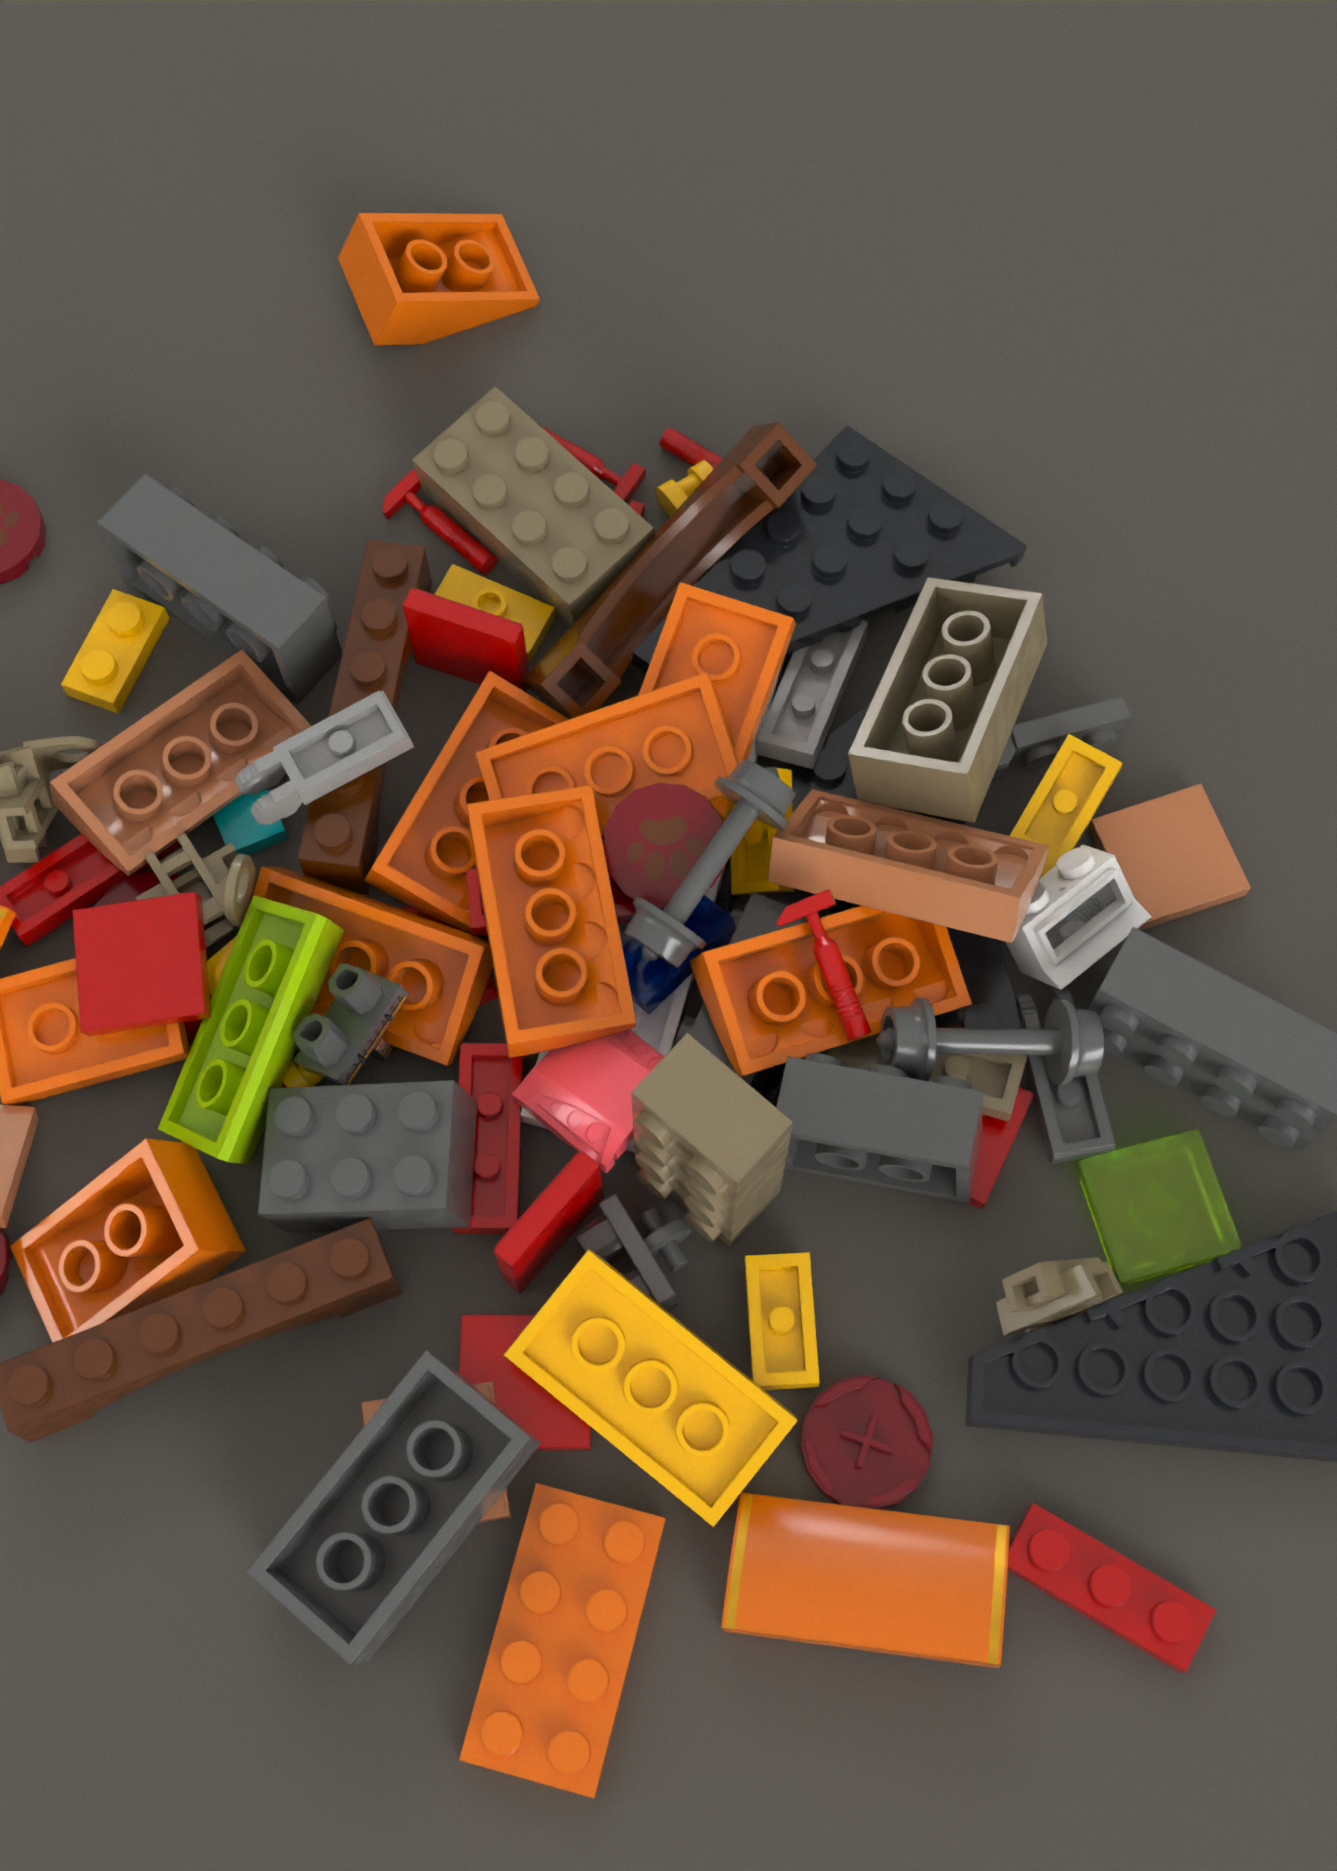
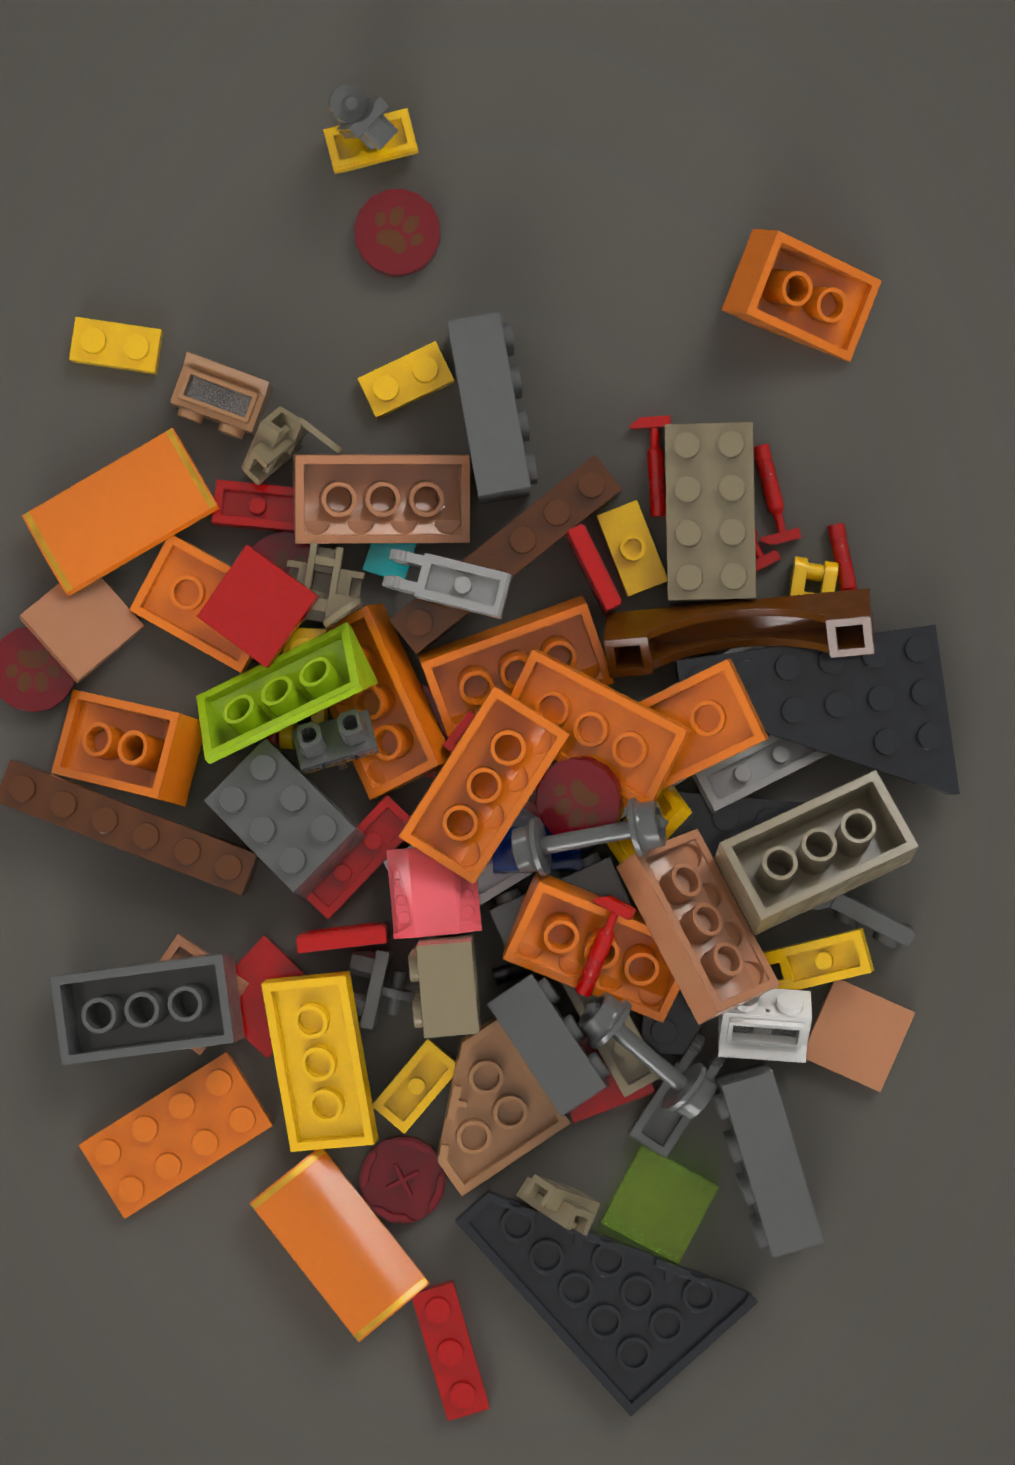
camera: 40 degrees right, 20 degrees up
(889, 1264) = (492, 1110): none -> medium nougat plate

